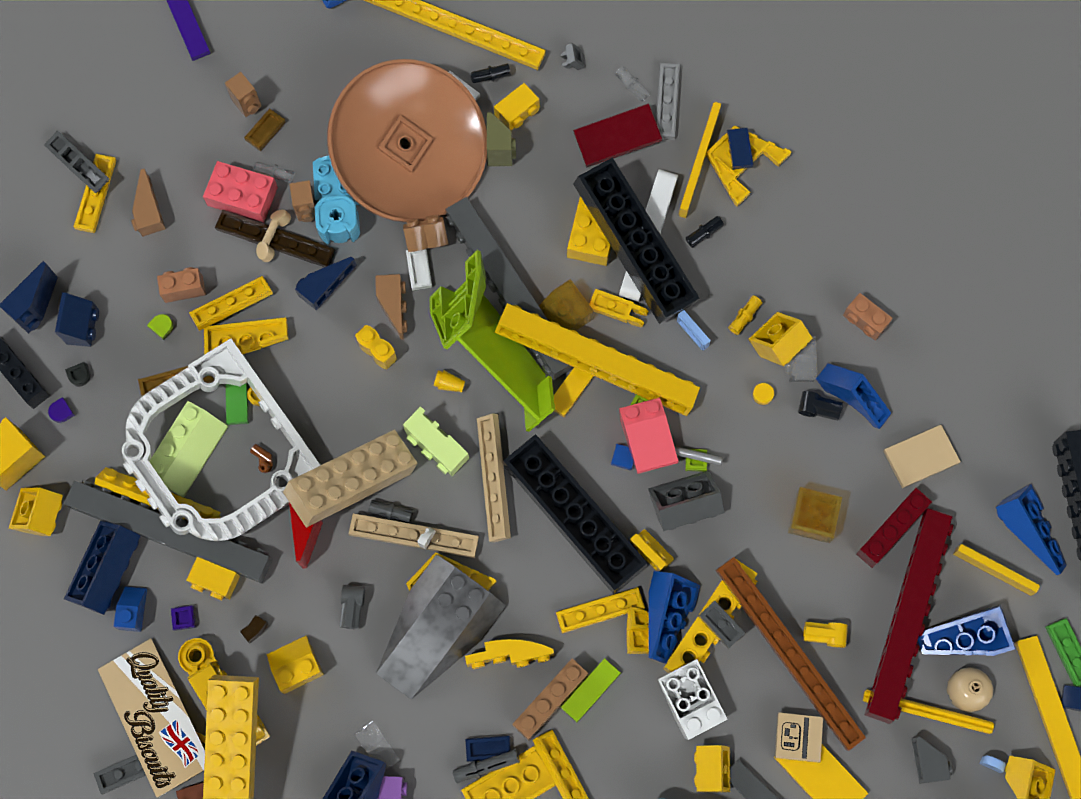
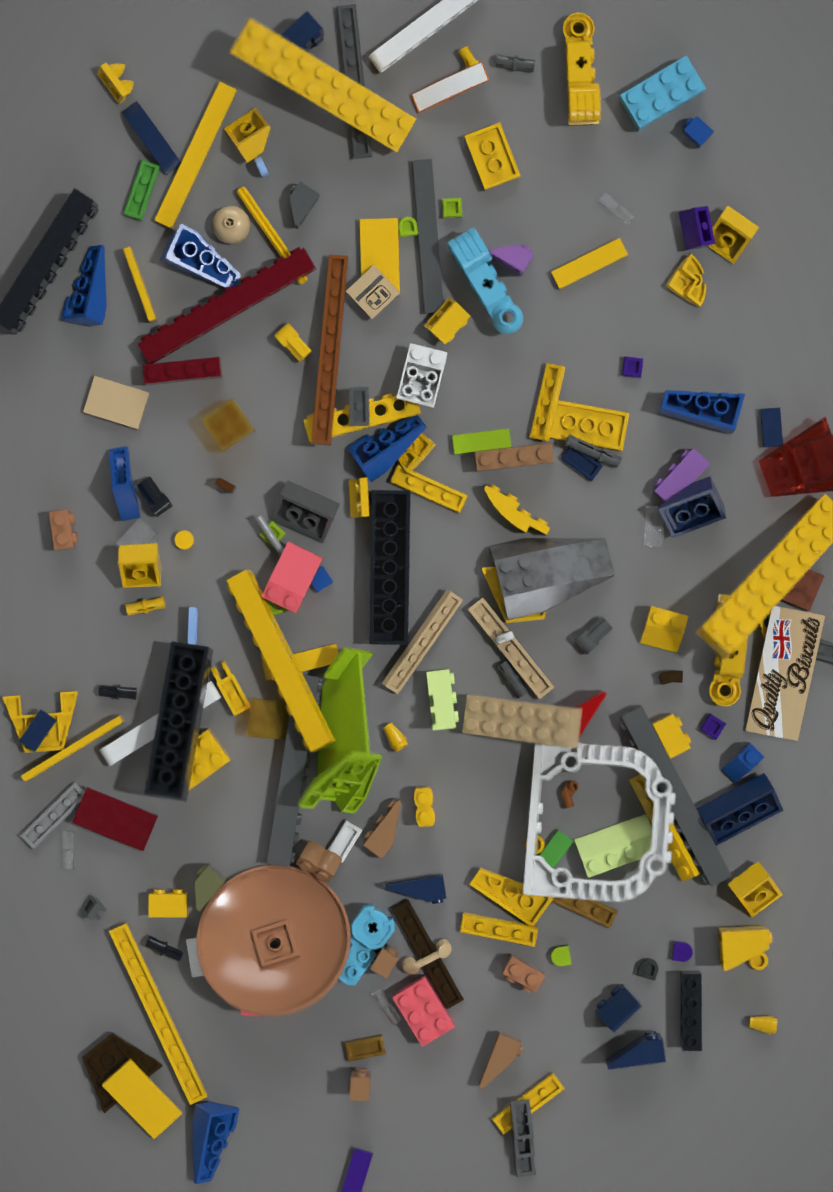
camera: 140 degrees left, 15 degrees up
(771, 465) = (226, 485): none -> reddish brown tile

